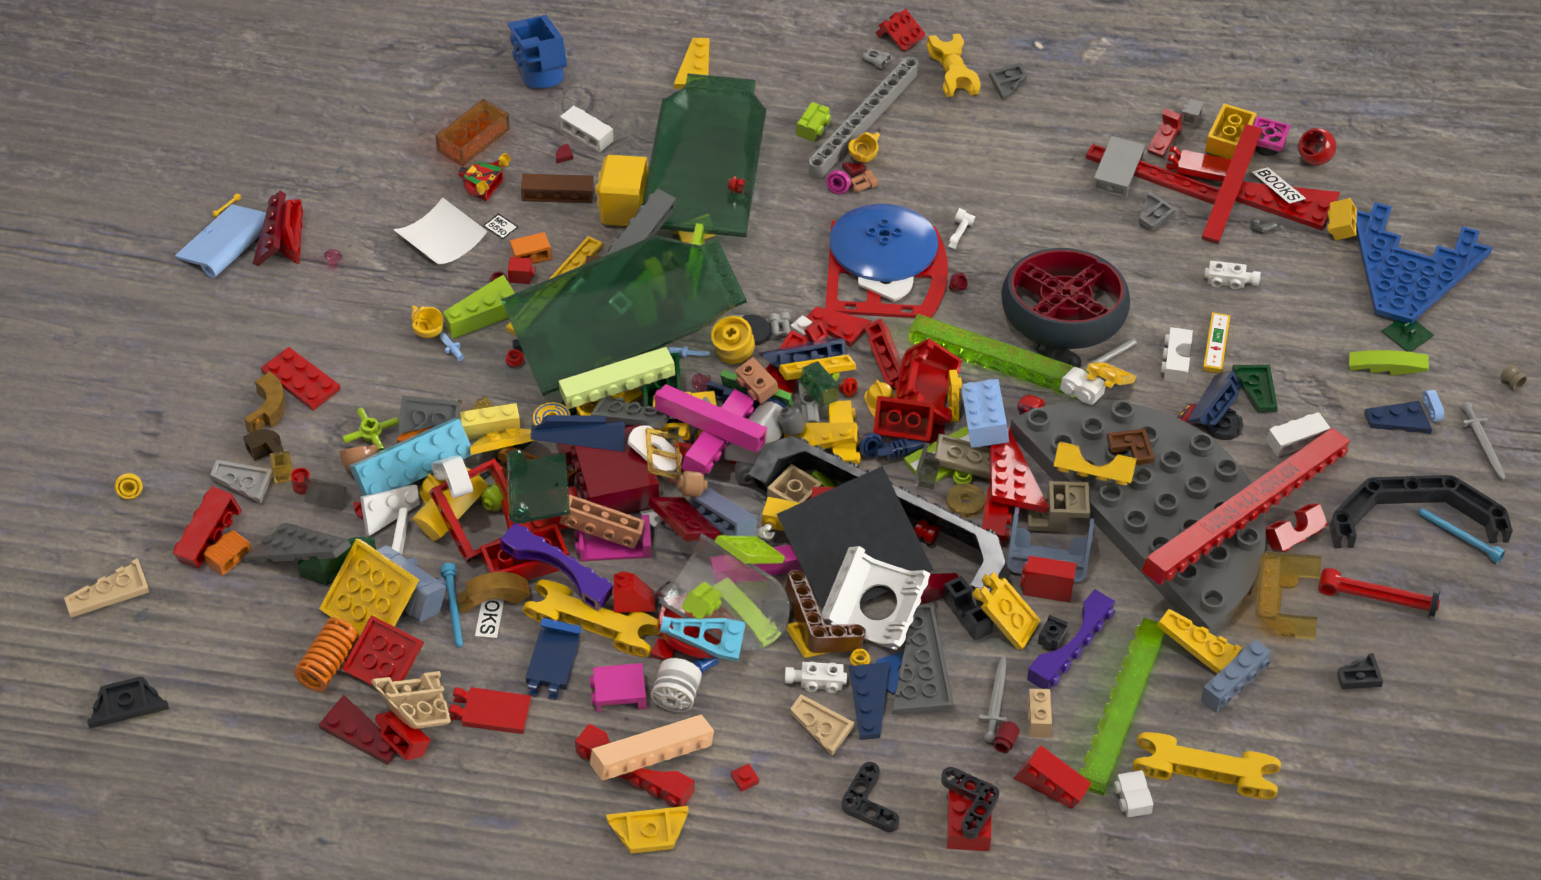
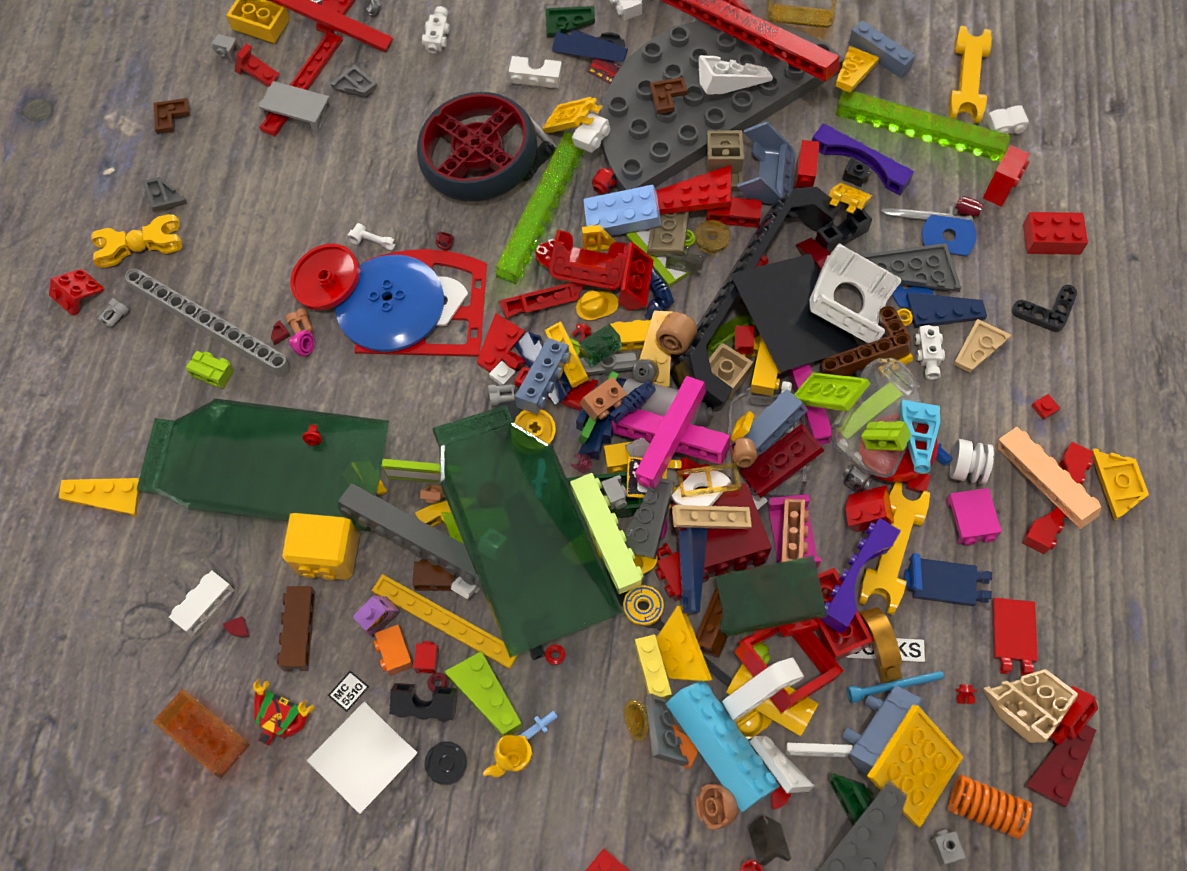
camera: 90 degrees left, 15 degrees up
(297, 624) = (947, 847): none -> light grey brick
(370, 429) = (679, 803): lime bar -> none
(382, 652) = (981, 745): red plate -> none
(428, 287) = (445, 763): none -> black tile
(438, 657) = (966, 691): none -> red plate
(481, 256) = (406, 703): none -> black arch
(481, 403) = (628, 680): clear yellow plate -> none
(538, 51) = (71, 662): blue brick -> none
(561, 231) = (374, 615): none -> medium lavender torso
(616, 440) = (711, 517): none -> tan plate
(654, 382) = (615, 492): none -> light grey brick
(722, 490) = (742, 426): none -> yellow tile
(751, 401) = (633, 401): none -> dark blue hinge
(782, 333) = (542, 376): none -> sand blue brick
(826, 433) = (676, 333): none -> medium nougat head
(864, 147) = (255, 317): yellow hair -> none
(910, 192) = (325, 276): none -> red dish
(973, 728) = (964, 233): none -> blue piece
(978, 795) = (1051, 216): black beam -> none
(1039, 713) = (942, 182): tan brick -> none
(1069, 458) = (700, 103): yellow arch -> none
(1107, 75) = (166, 111): none -> reddish brown plate
(1160, 496) = (724, 77): none -> white wedge
(1198, 164) = (296, 44): red tile -> none
(1216, 342) = (515, 46): tile -> none

